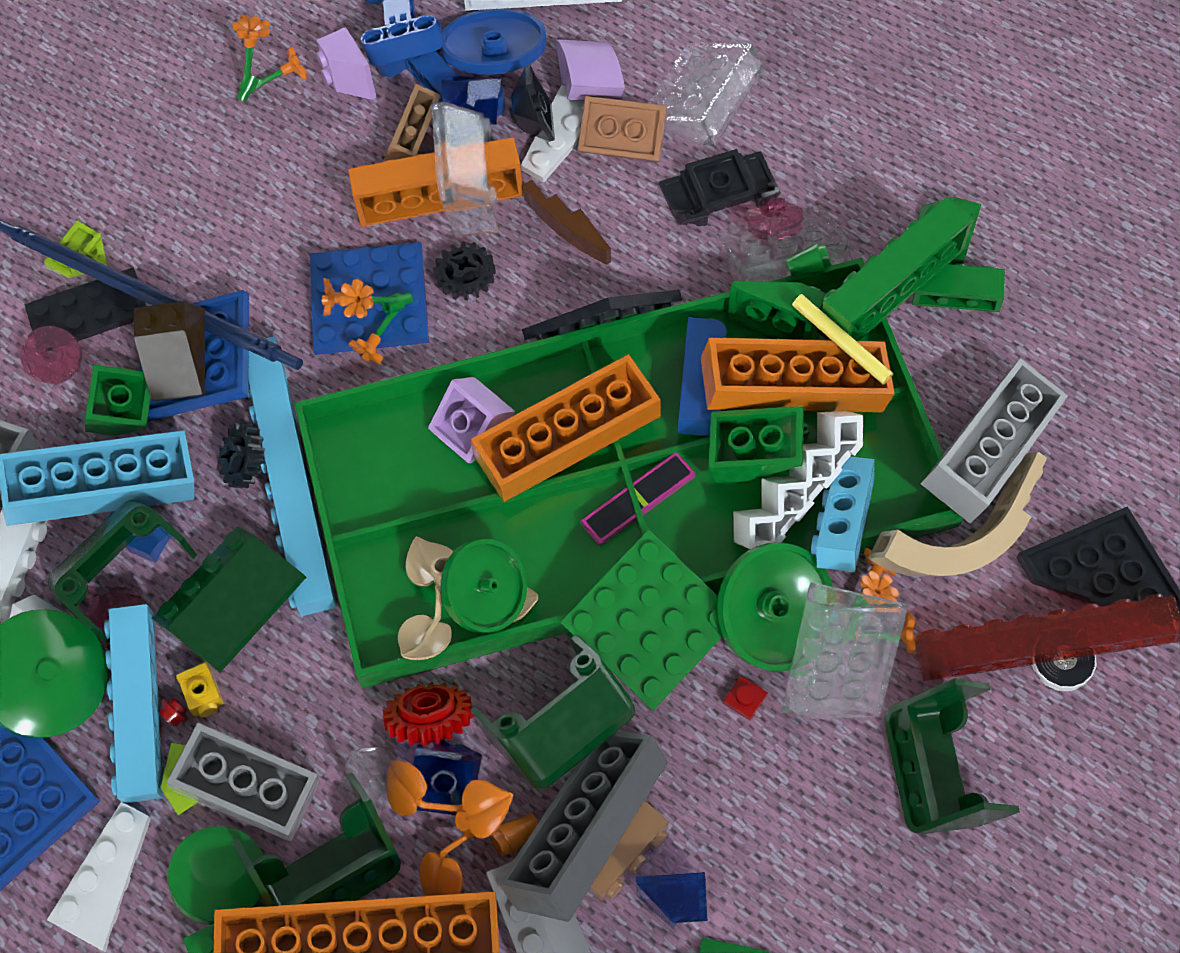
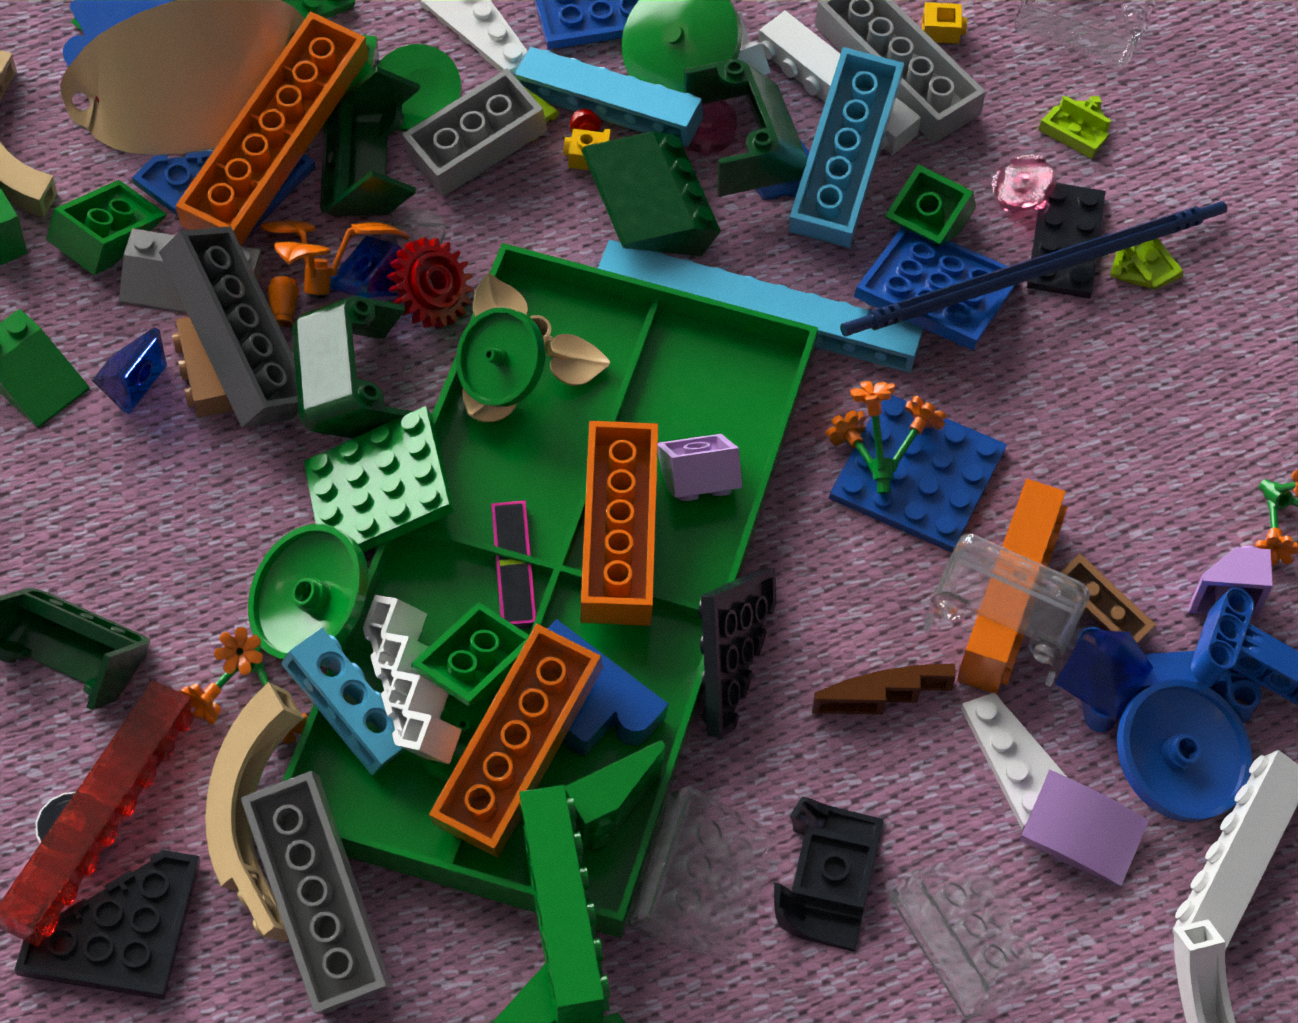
camera: 115 degrees right, 5 degrees down
(171, 349) = (947, 252): slope -> none
(241, 455) = (797, 270): black gear -> none
(467, 273) = (888, 564): black gear -> none
(532, 106) = (1049, 732): black slope -> none
(622, 129) = (970, 810): nougat plate -> none
(745, 698) = (255, 540): red plate -> none
(775, 219) = (759, 878): clear pink plate -> none
(809, 260) = (649, 858): green cone -> none
(842, 339) = (510, 795): light yellow piece -> none
(843, 654) = (217, 596): clear slope -> none

